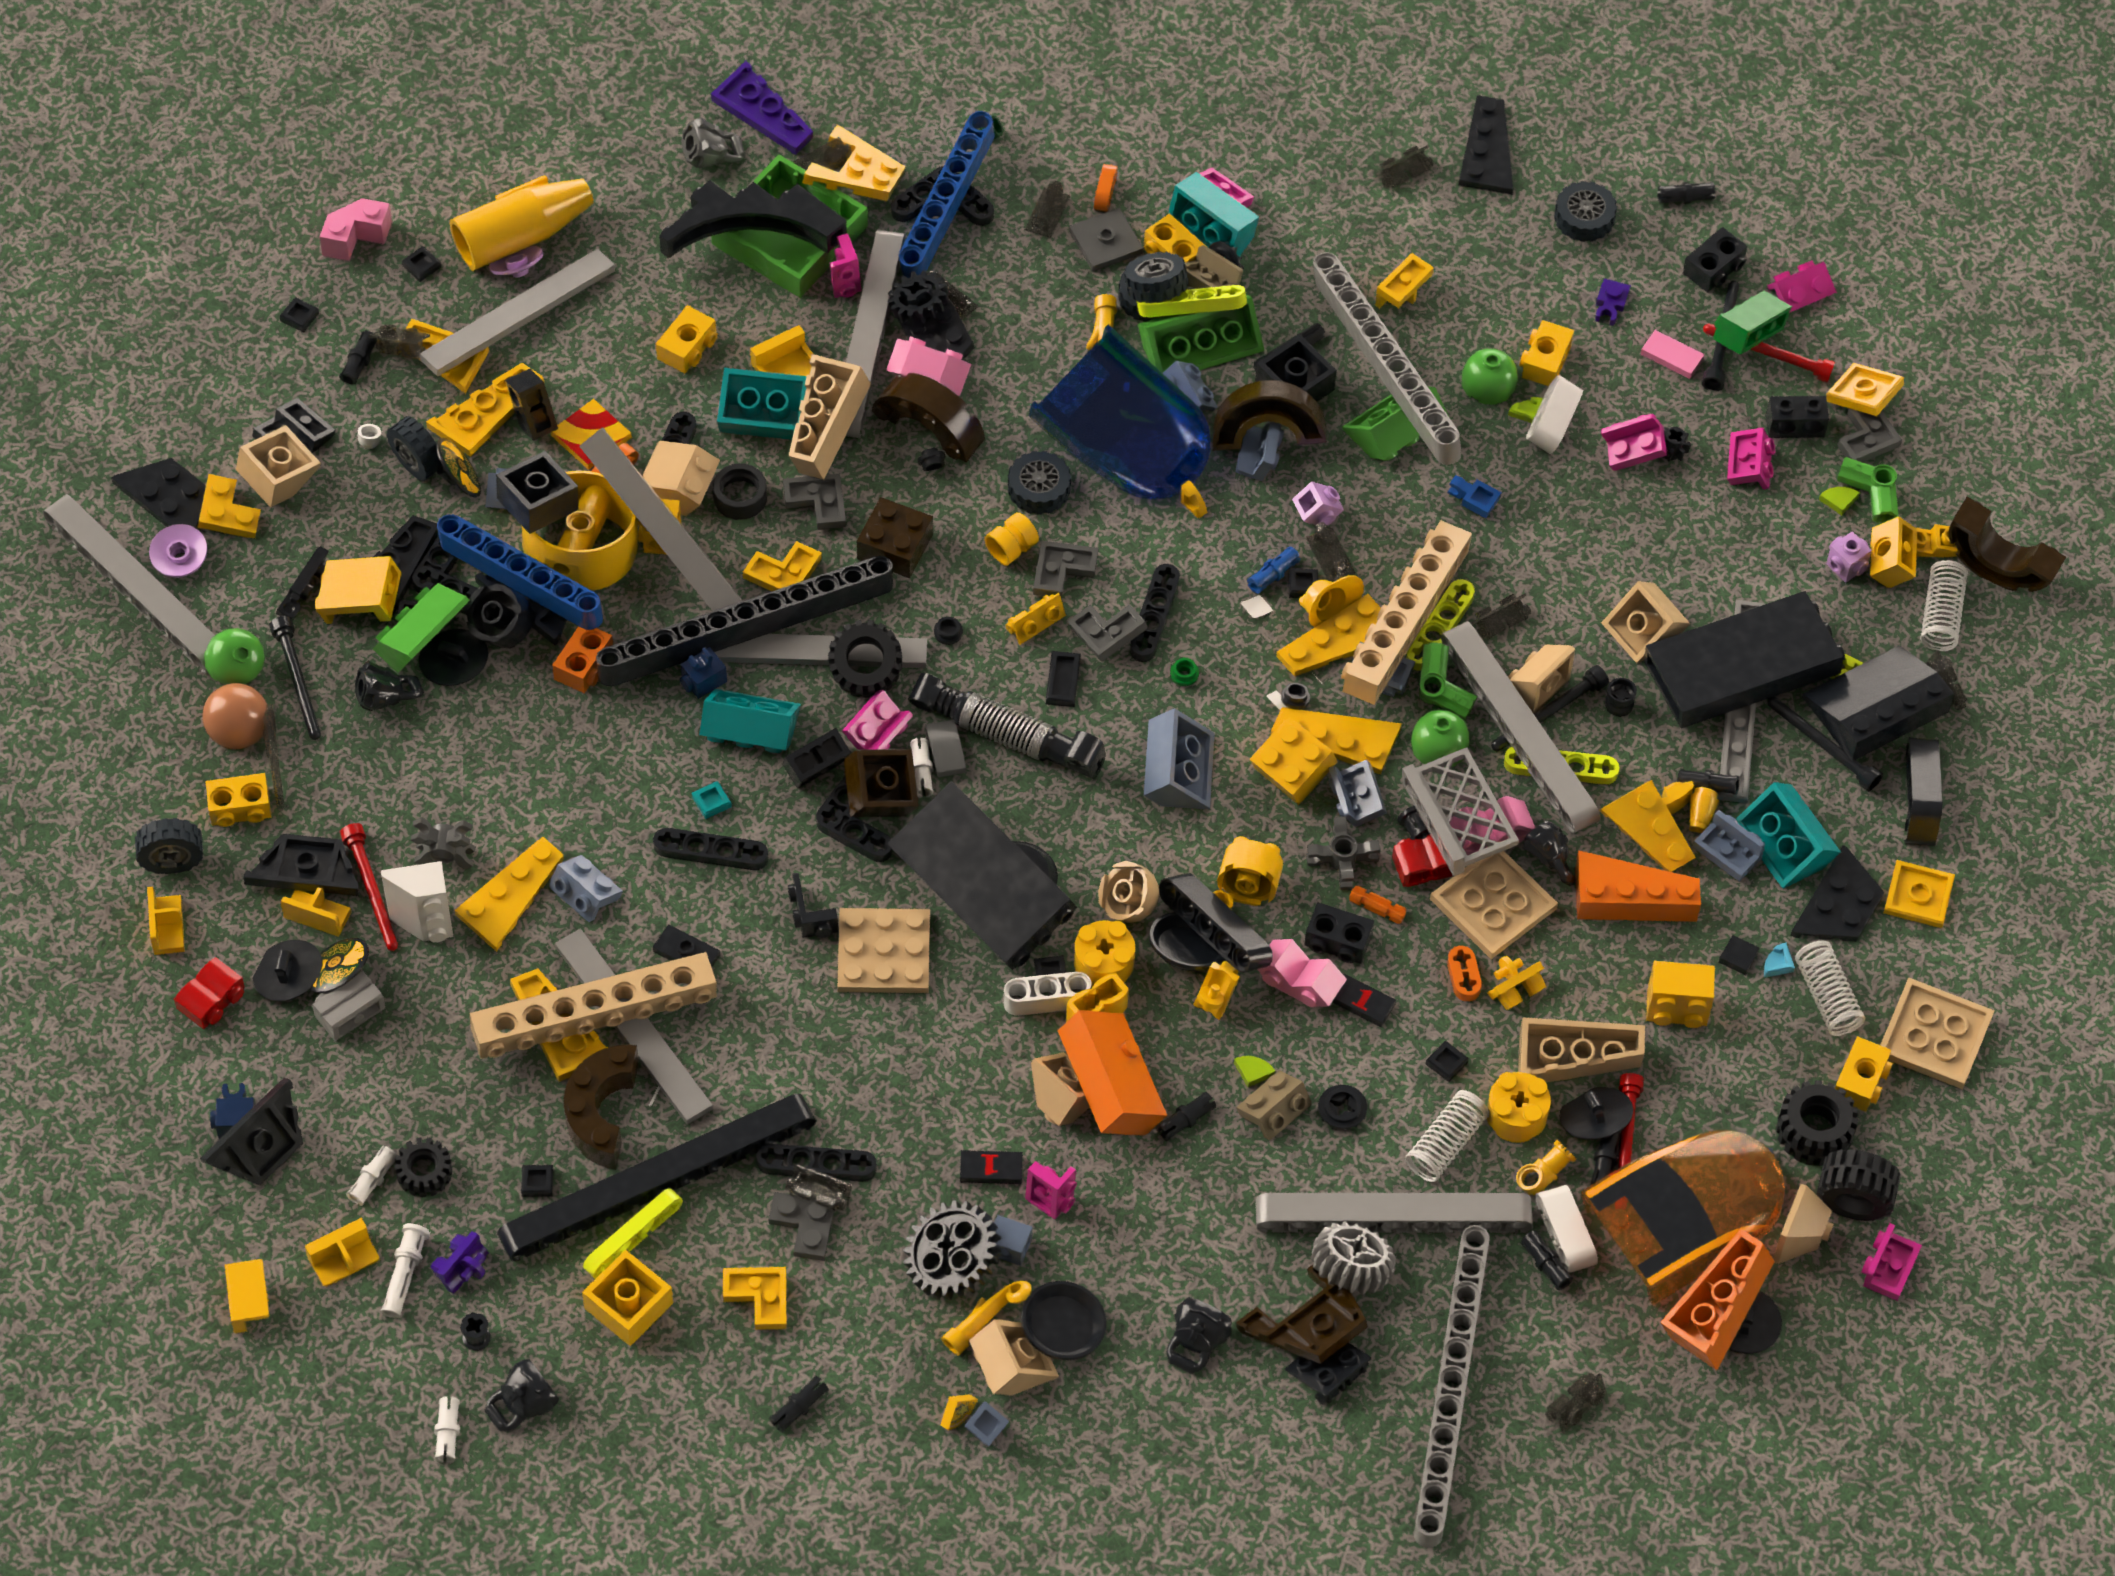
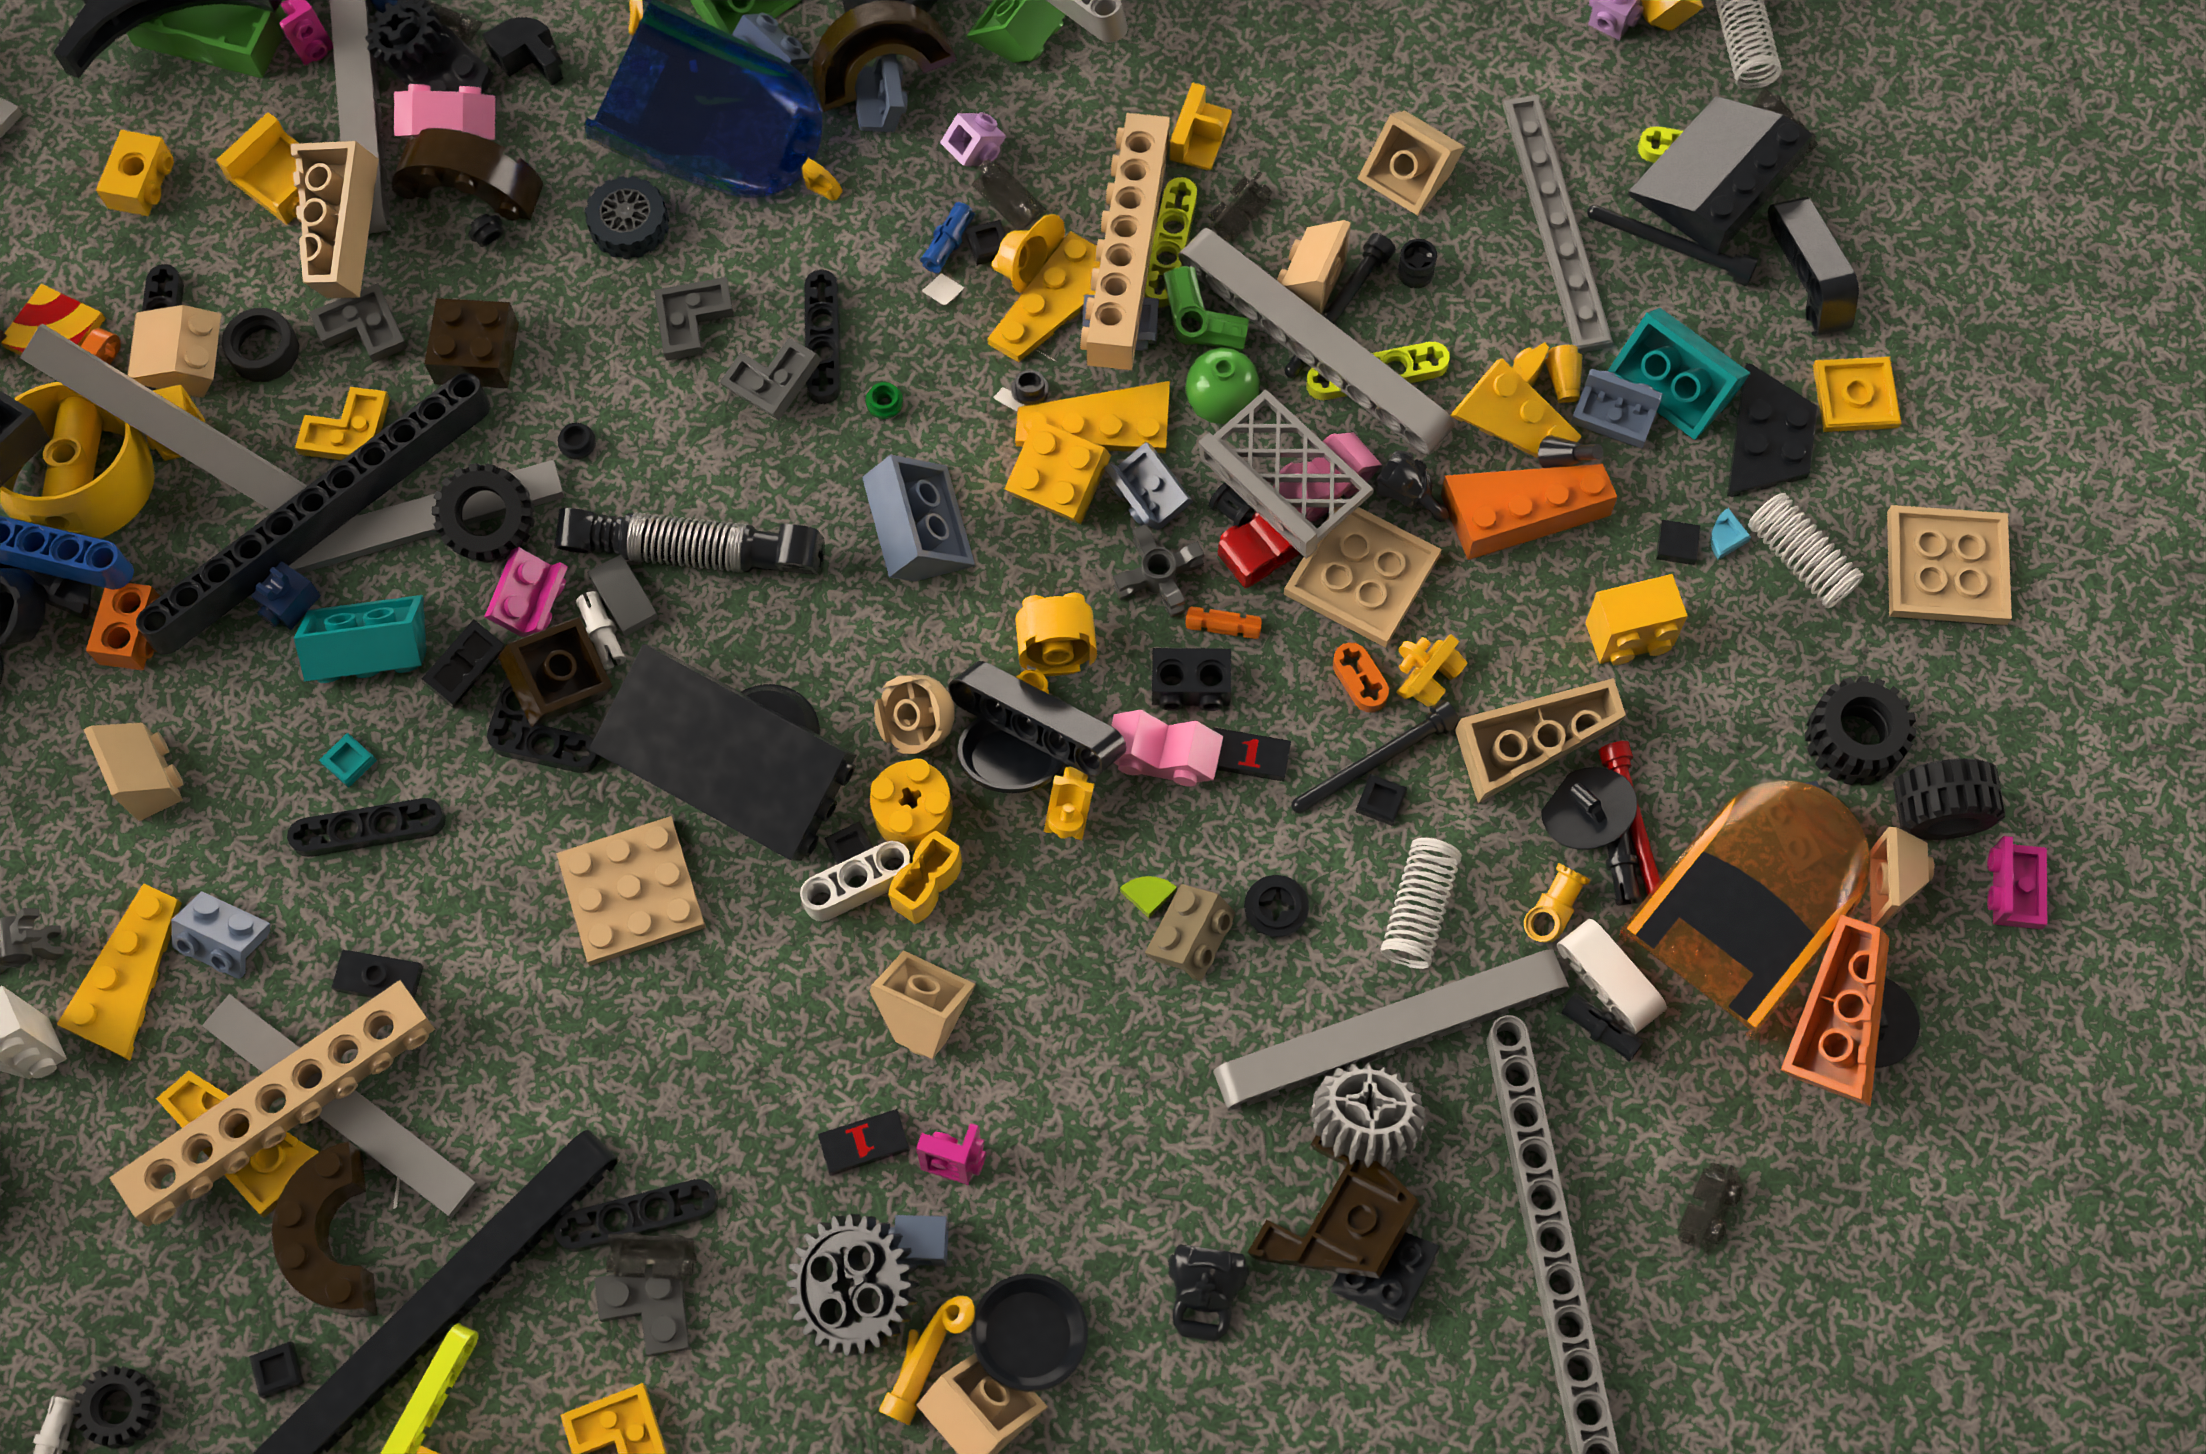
camera: 15 degrees left, 10 degrees up
(564, 756) = (135, 767): none -> tan slope
(760, 403) = (247, 225): teal slope -> none
(815, 923) = (536, 884): black bracket -> none
(1004, 330) = (523, 42): none -> black brick
(1013, 538) = (617, 299): yellow wheel -> none
(1040, 617) = (685, 386): yellow hinge -> none
(1063, 679) = (738, 457): black tile -> none
(1112, 1073) = (976, 966): orange brick -> none
(1186, 1116) = (1086, 986): black pin -> none
(1476, 497) = (1158, 71): blue plate -> none
(1492, 550) = (1198, 130): none -> yellow panel
(1509, 1020) = (1439, 720): none -> black piece
(1518, 1106) = (1505, 815): yellow brick -> none
(1672, 861) = (1562, 452): none -> black cone
(1709, 780) = (1562, 334): black pin -> none
(1744, 659) = (1544, 171): black brick -> none
(1866, 1059) = (1890, 626): yellow brick -> none

